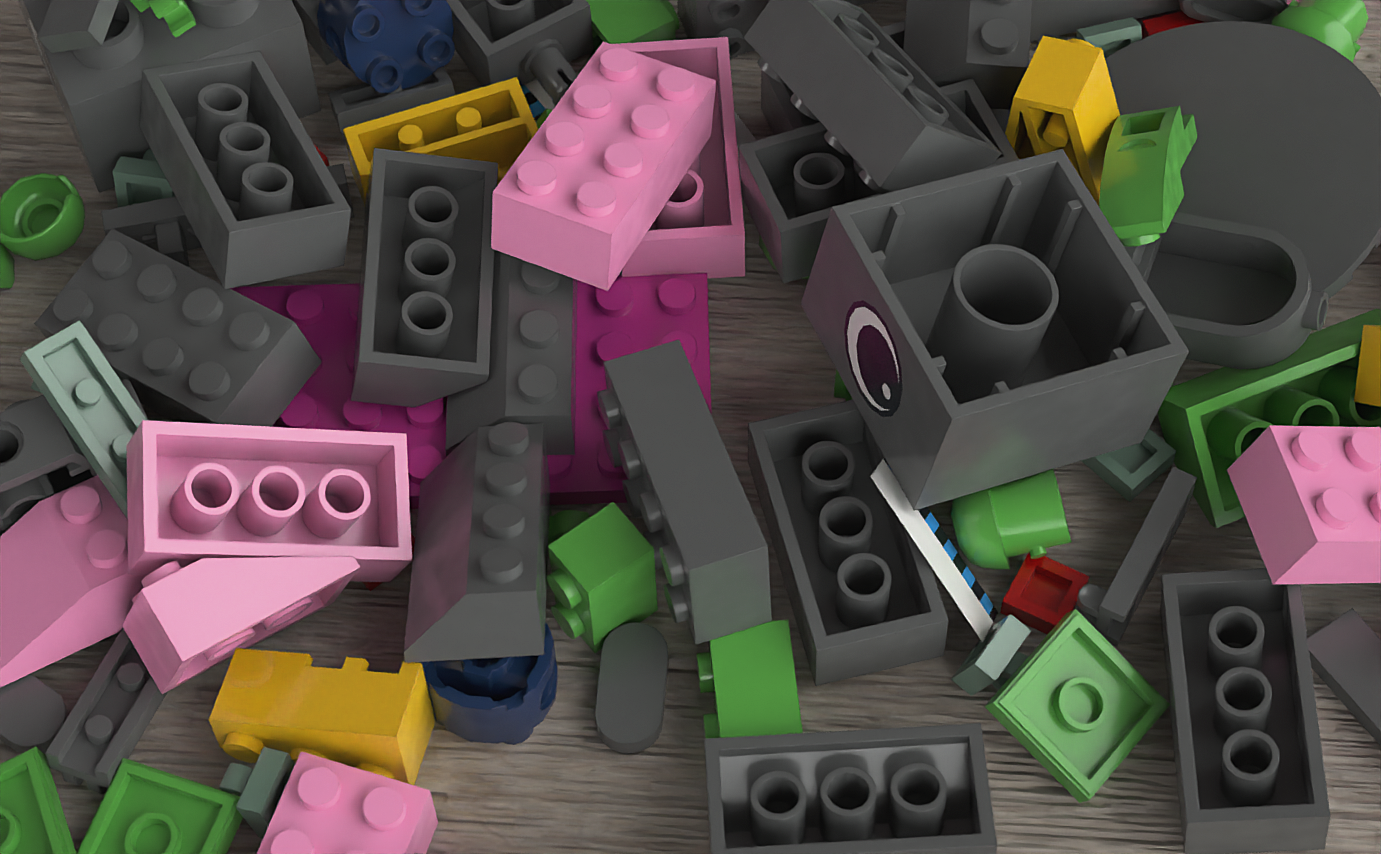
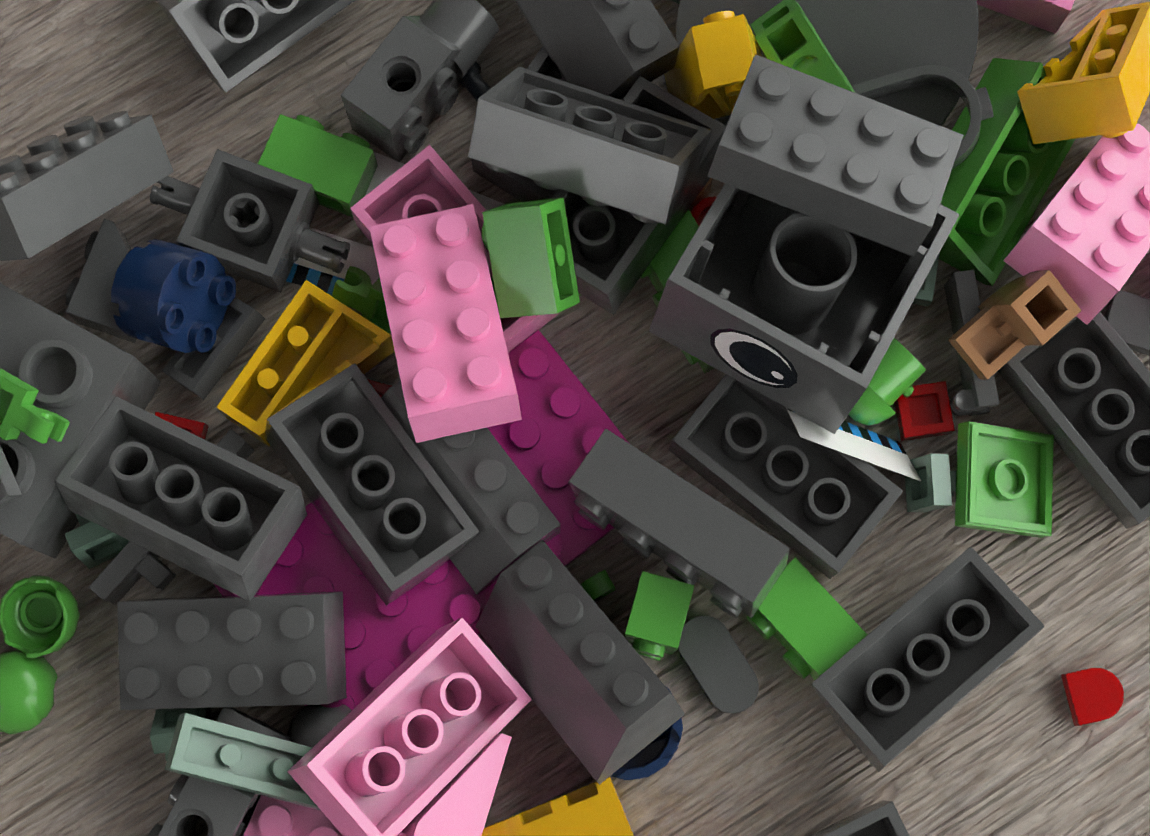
camera: 40 degrees left, 20 degrees up
(731, 152) = (530, 258): none -> bright green brick
(1090, 206) = (836, 156): none -> dark grey brick
(1200, 532) = (1014, 317): none -> medium nougat brick

